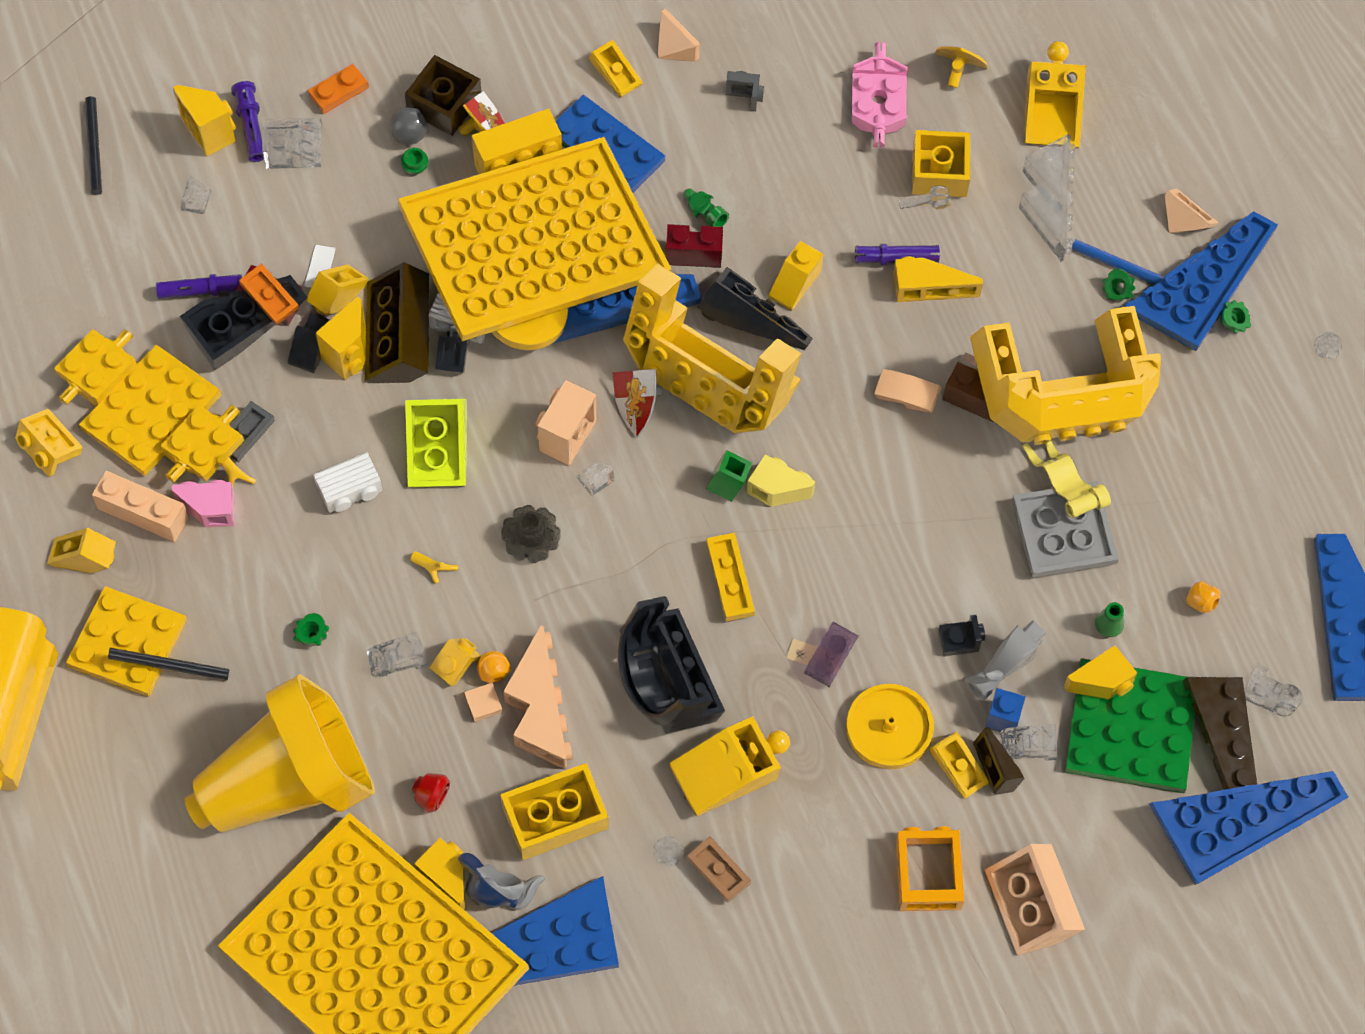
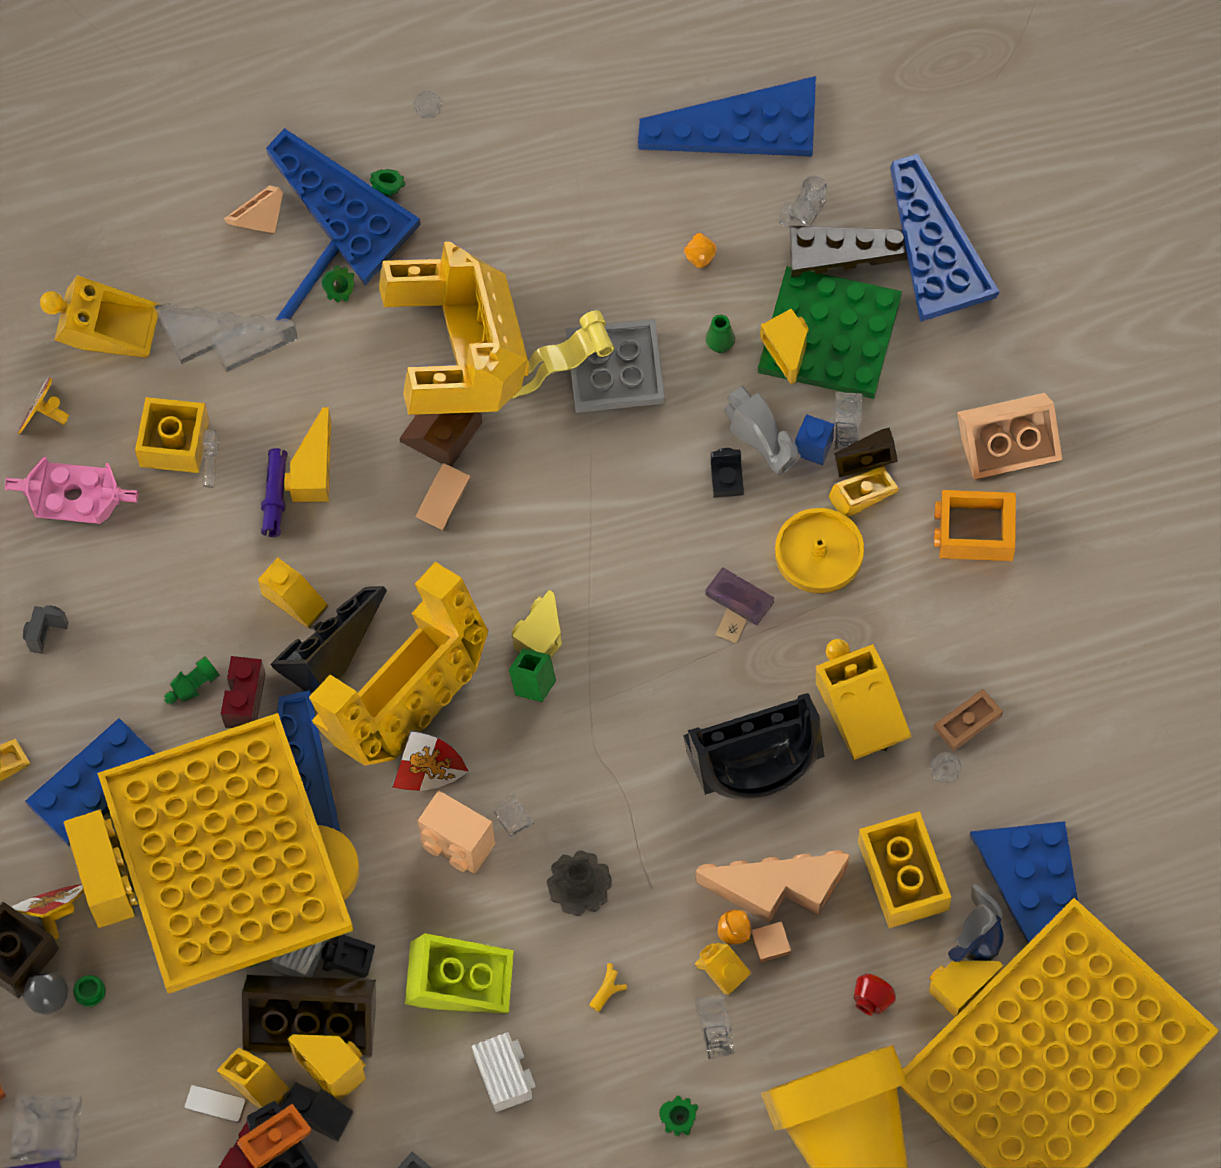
camera: 80 degrees left, 0 degrees up
(730, 577) = (645, 686): yellow plate -> none

